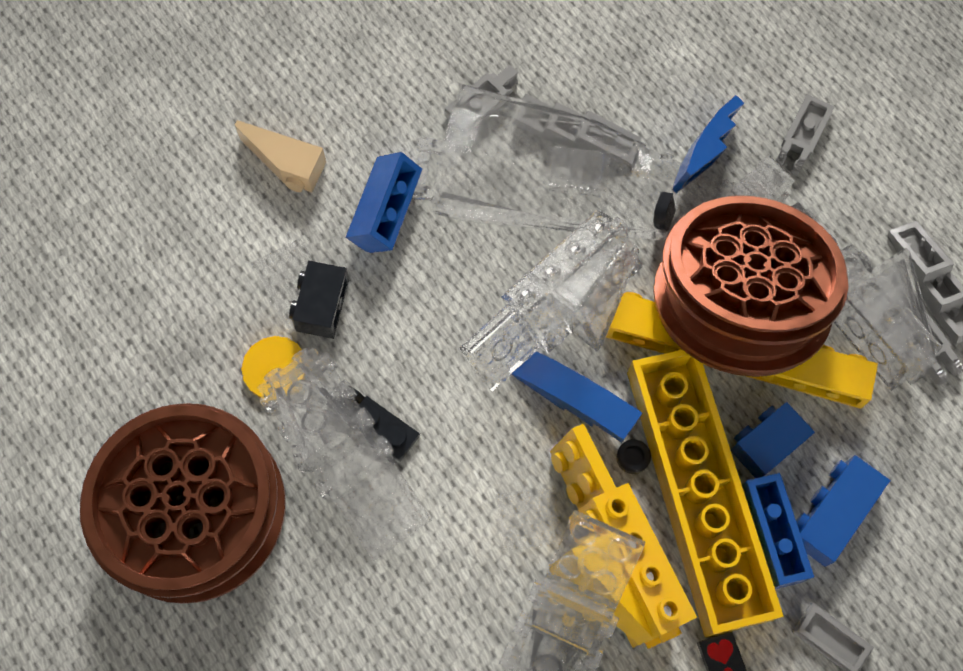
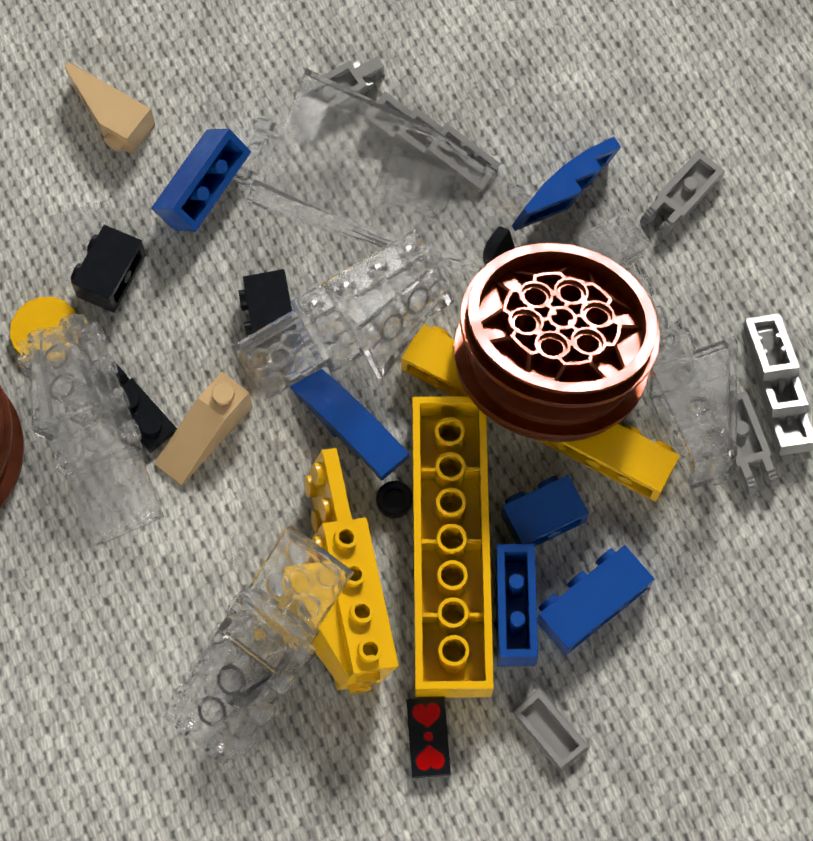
camera: 15 degrees right, 0 degrees up
(445, 429) = (204, 427): none -> tan slope
(472, 301) = (265, 298): none -> black brick

